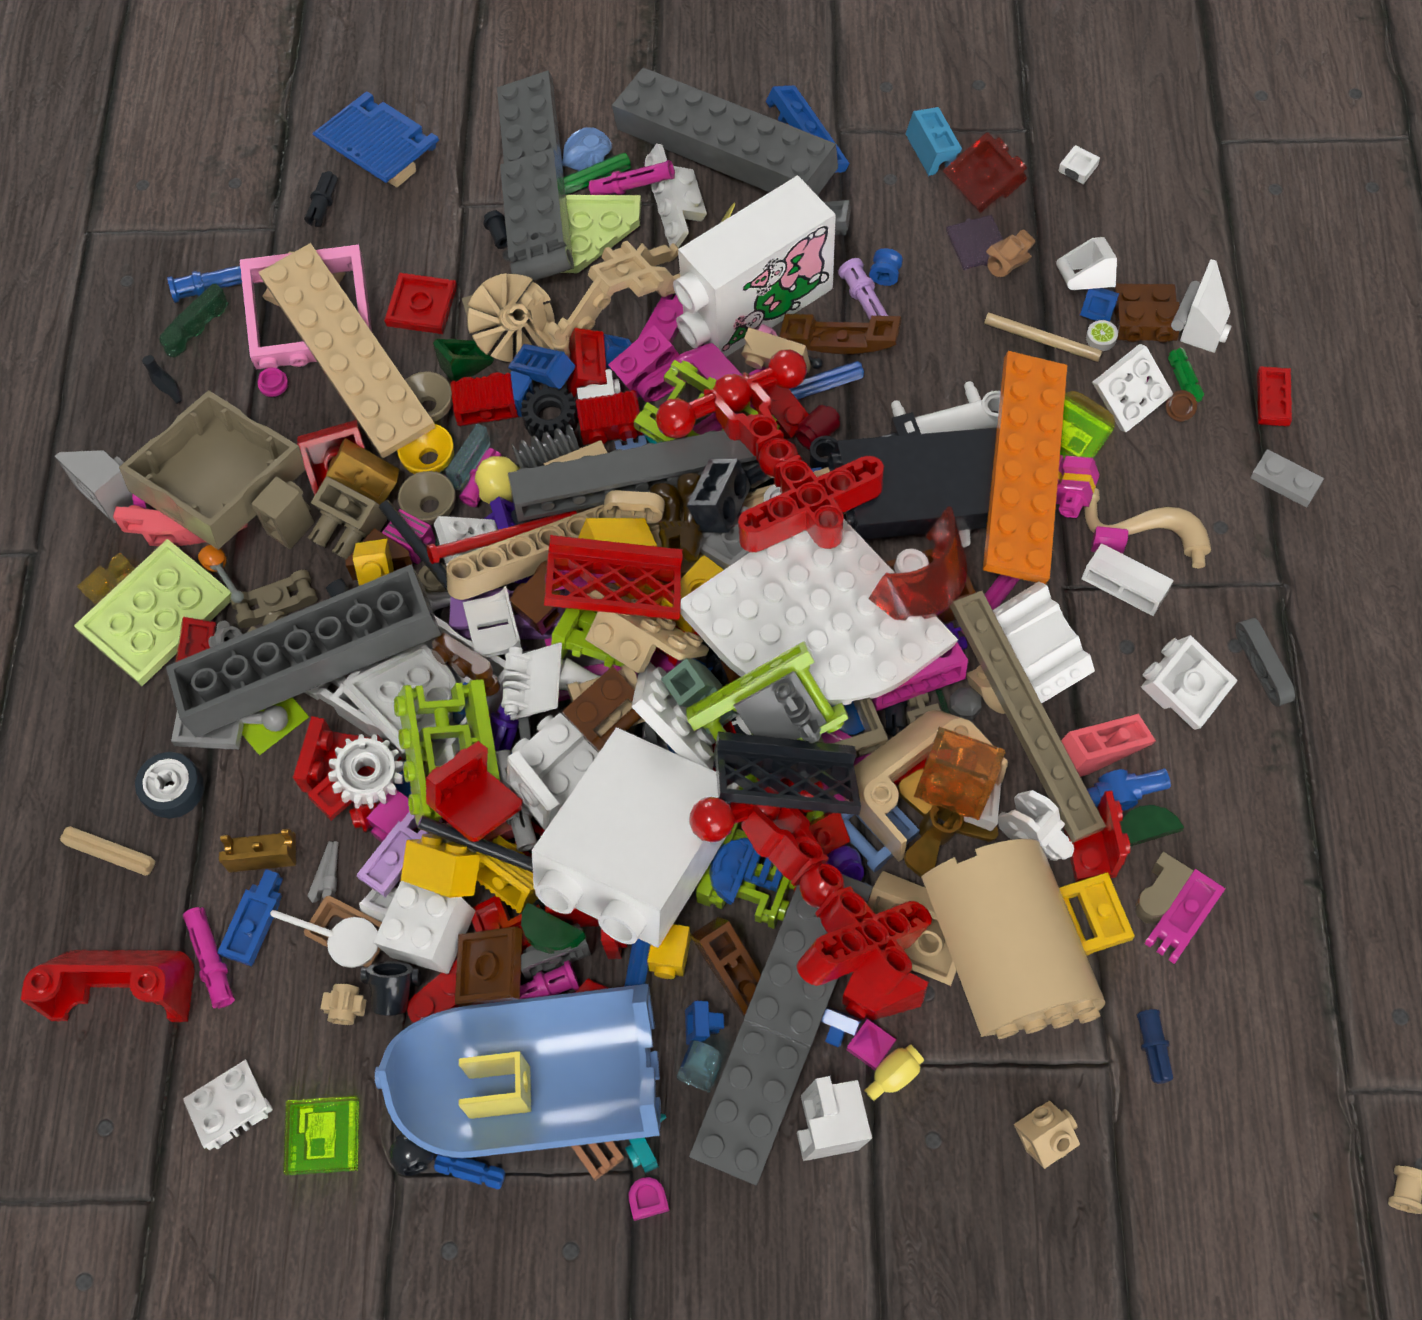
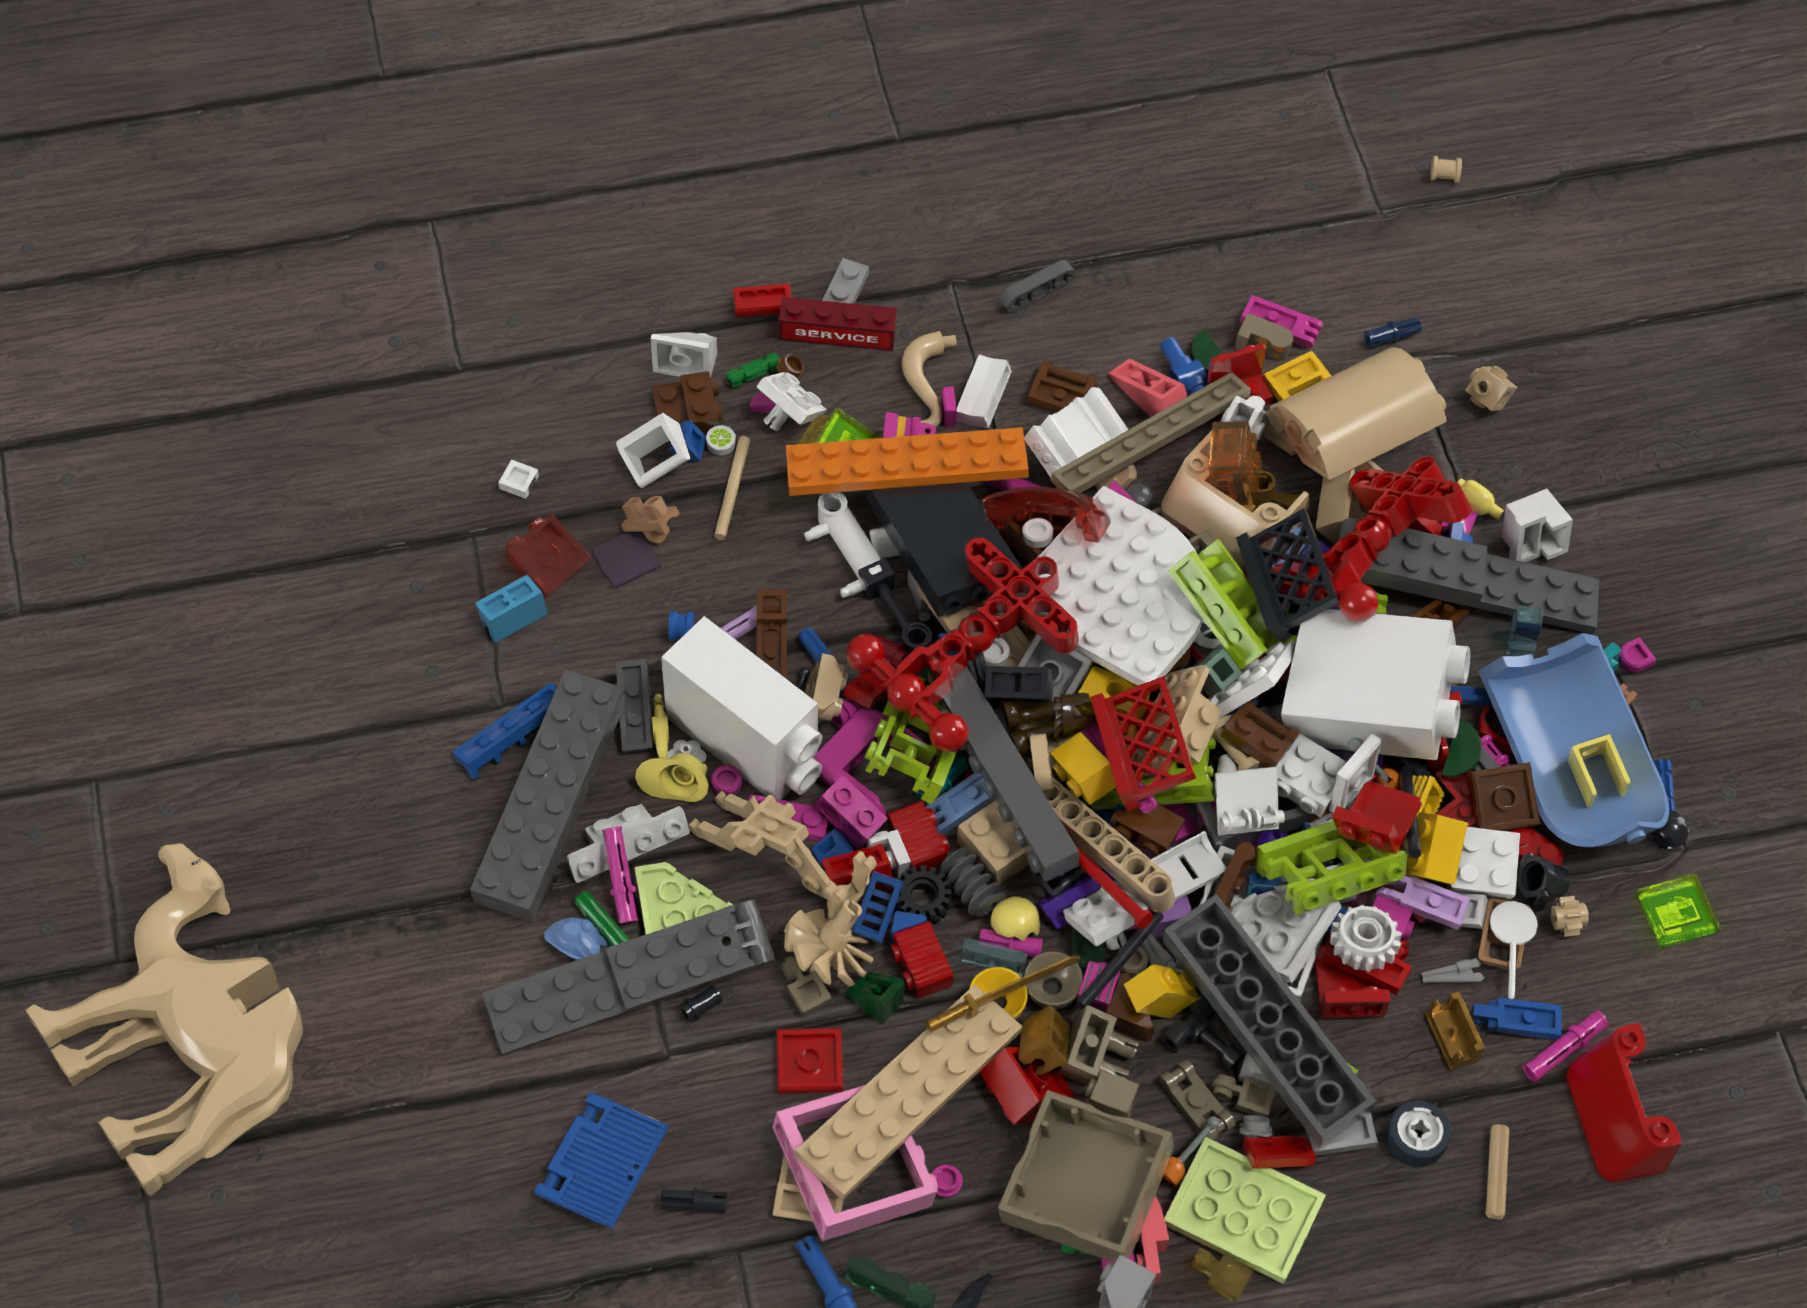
camera: 110 degrees left, 5 degrees down
(226, 1105) = (1684, 988): white hinge -> none
(404, 403) = (971, 1006): none -> pearl gold sword
(432, 387) = (926, 1002): dark tan piece -> none
(701, 1022) = (1487, 641): blue tile -> none
(782, 711) = (1228, 572): dark grey hinge -> none
(1111, 651) = (1057, 394): none -> reddish brown plate
(1185, 306) = (684, 368): light grey bar -> none
(1188, 681) = (1073, 336): white plate -> none
(1231, 455) = (837, 324): none -> dark red brick

